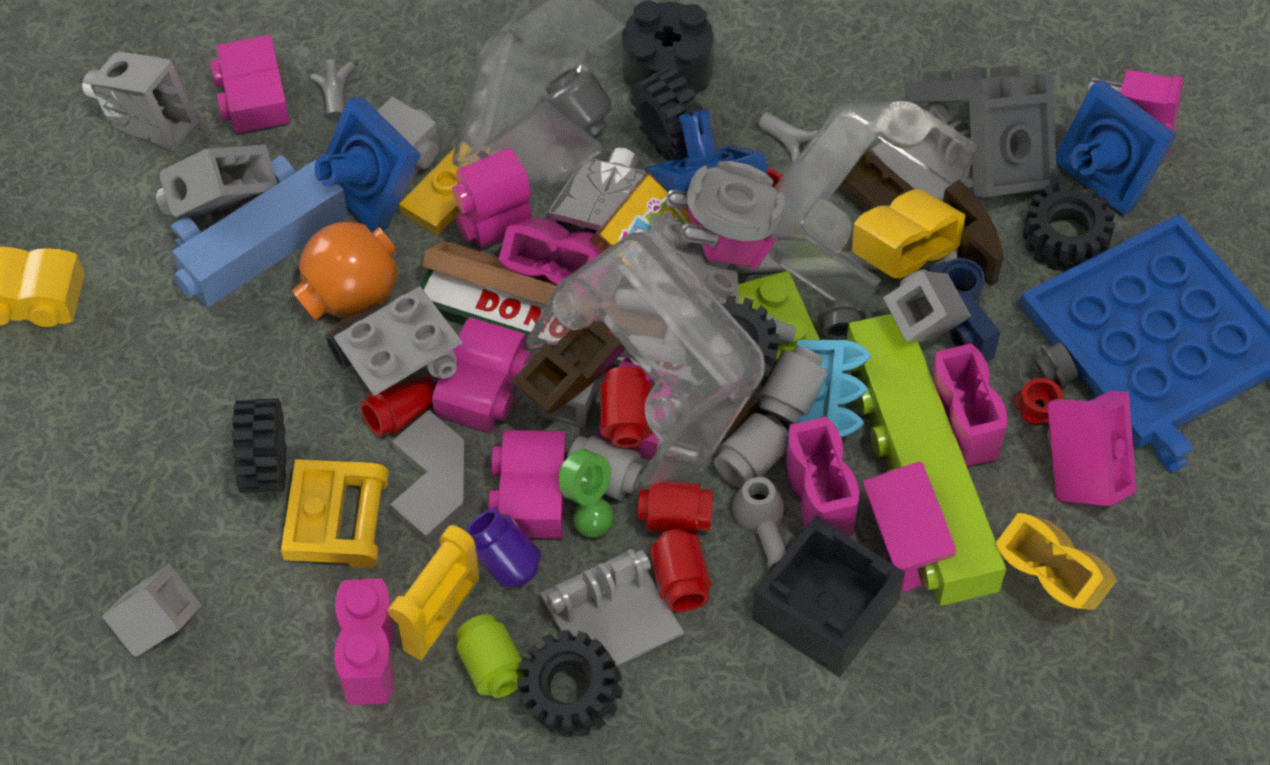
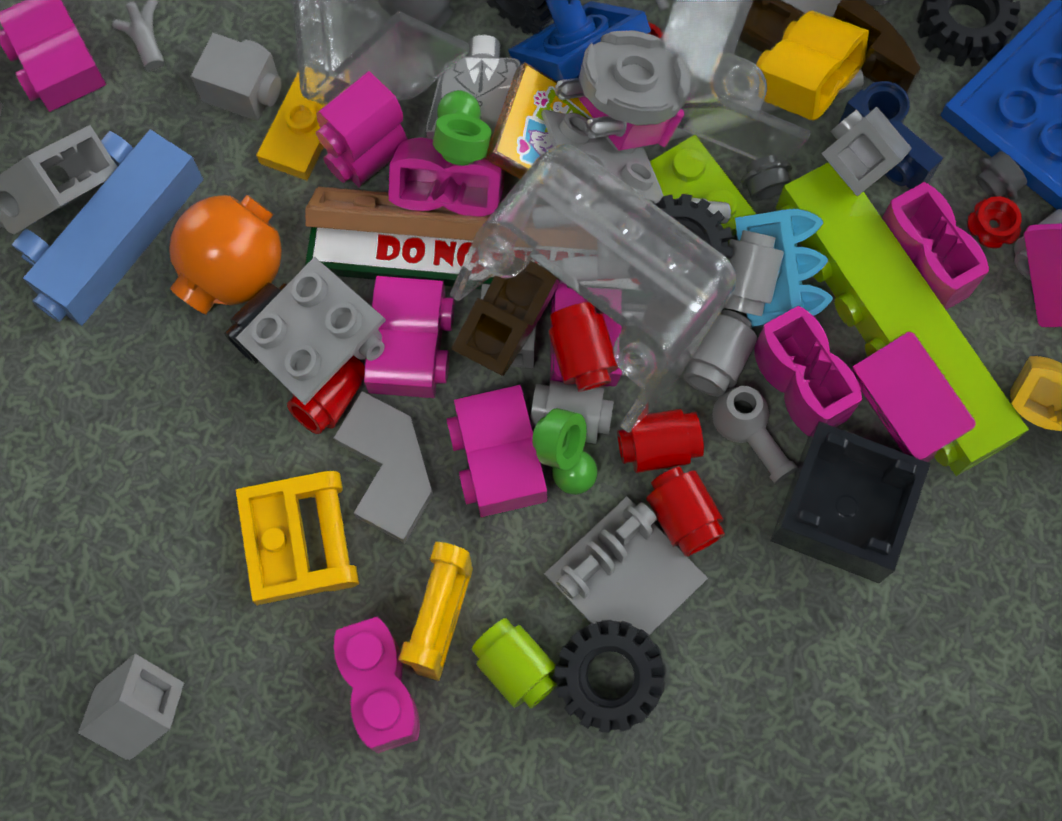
camera: 15 degrees left, 15 degrees up
(259, 445) = (191, 487): black tyre -> none
(368, 163) = (210, 119): blue plate -> none
(504, 548) = (494, 538): dark purple brick -> none
(575, 212) = (459, 131): none -> bright green plate

